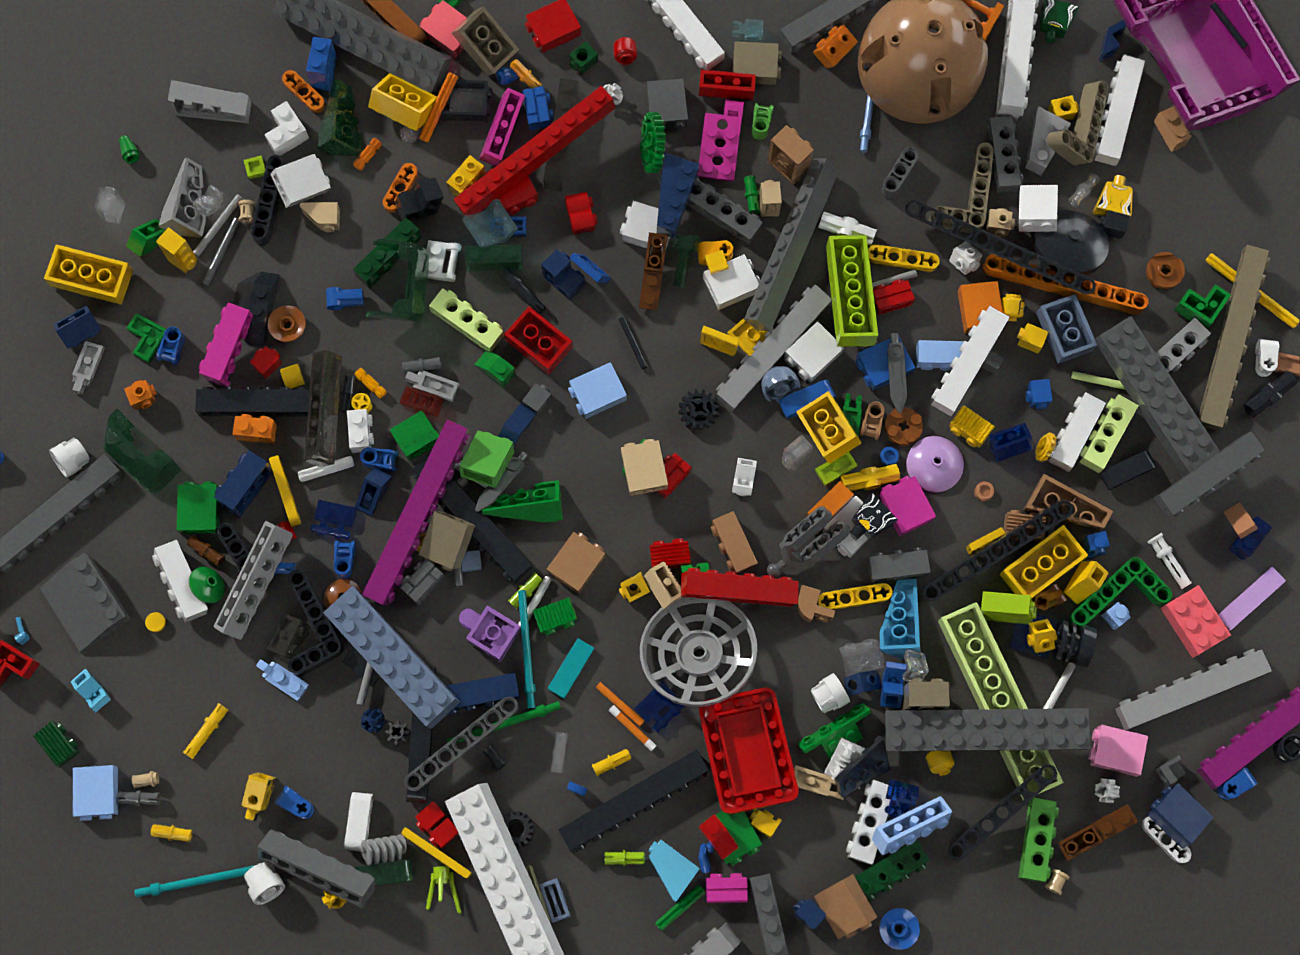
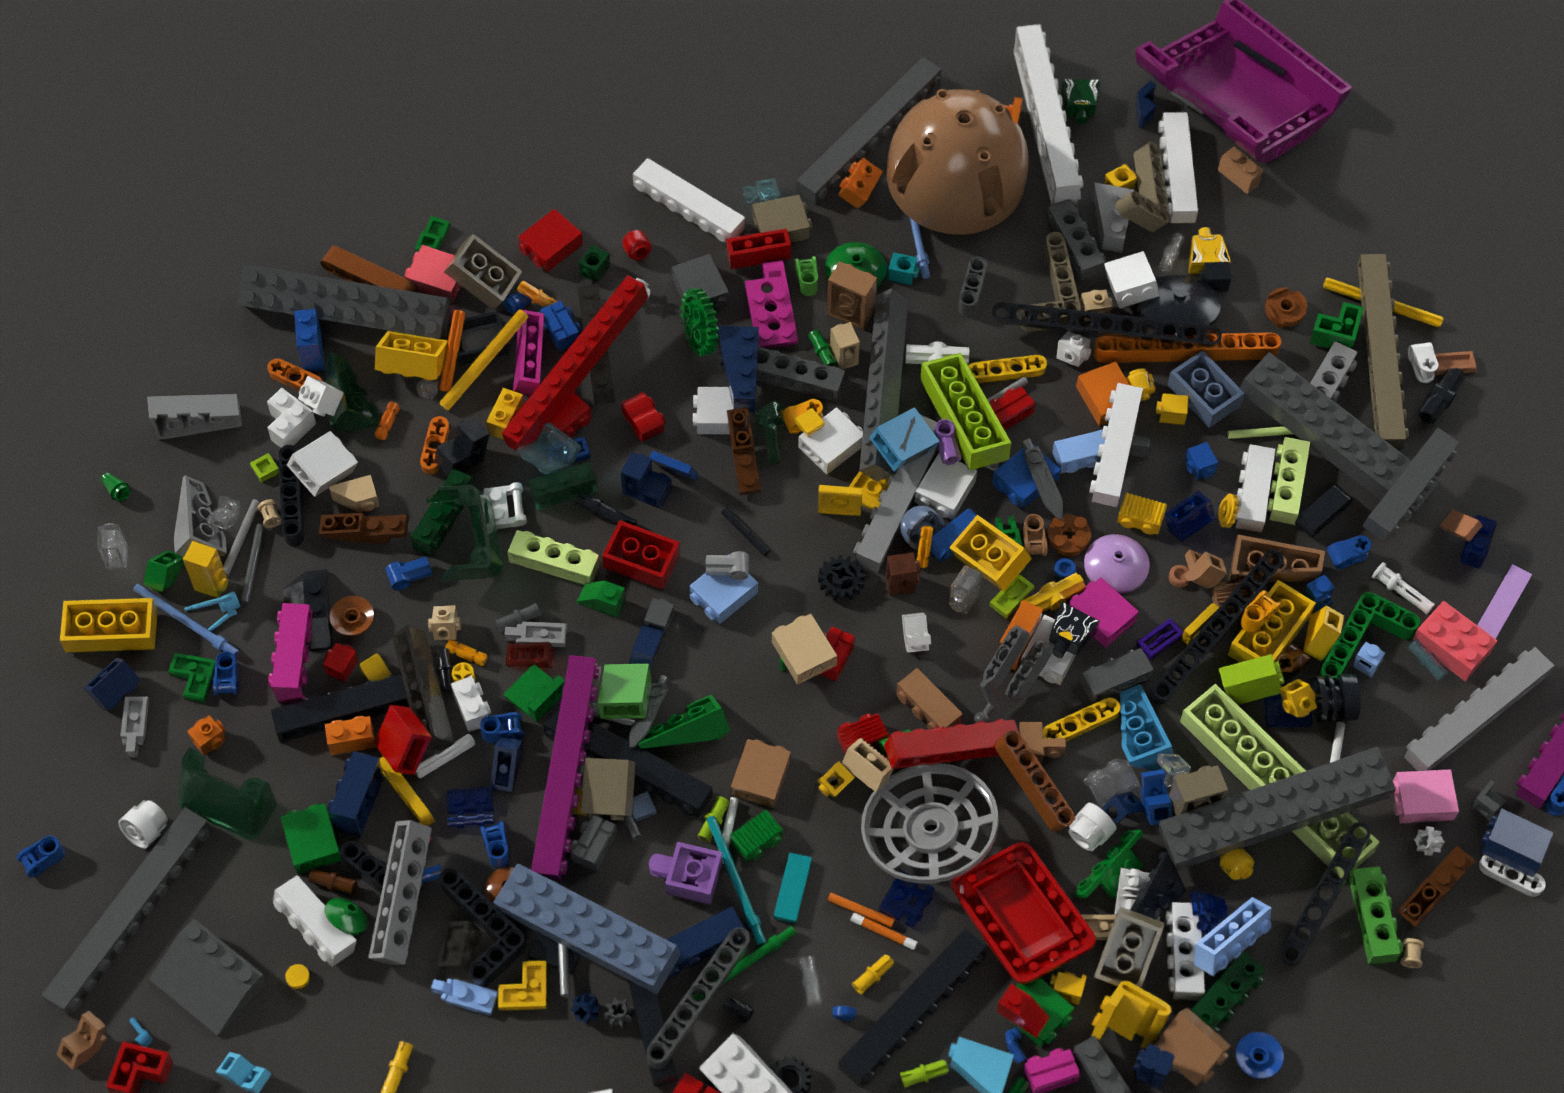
camera: 15 degrees left, 15 degrees down
(173, 313) = (218, 642): none -> medium blue bar
(190, 281) = (226, 602): none -> medium azure plant
(292, 449) = (402, 739): none -> red brick
(316, 118) = (320, 396): none -> white brick
(318, 247) = (362, 529): none -> reddish brown slope
(334, 693) = (529, 994): none -> yellow plate
(359, 353) = (444, 623): none -> tan brick
(462, 123) = (483, 360): none -> yellow axle
(609, 375) = (734, 566): none -> light grey piece
(749, 423) = (902, 573): none -> copper brick
(776, 403) = (924, 545): none -> light orange axle
(789, 304) = (904, 439): none -> dark azure brick
(789, 634) = (1044, 786): none -> dark orange beam
(806, 862) = (1132, 1012): none -> yellow piece
(816, 131) = (869, 259): none -> green dish
(822, 811) = (1129, 948): none -> dark tan brick
(825, 317) = (947, 443): none -> medium lavender piece
(842, 132) = (901, 262): none -> teal brick
(932, 548) = (1147, 648): none -> dark purple tile
(1005, 494) = (1204, 569): none -> medium nougat brick
(1038, 549) = (1261, 609): none -> light orange piece
(1133, 514) = (1349, 551): none -> blue piece
(1166, 630) = (1427, 660): none -> clear light blue pin

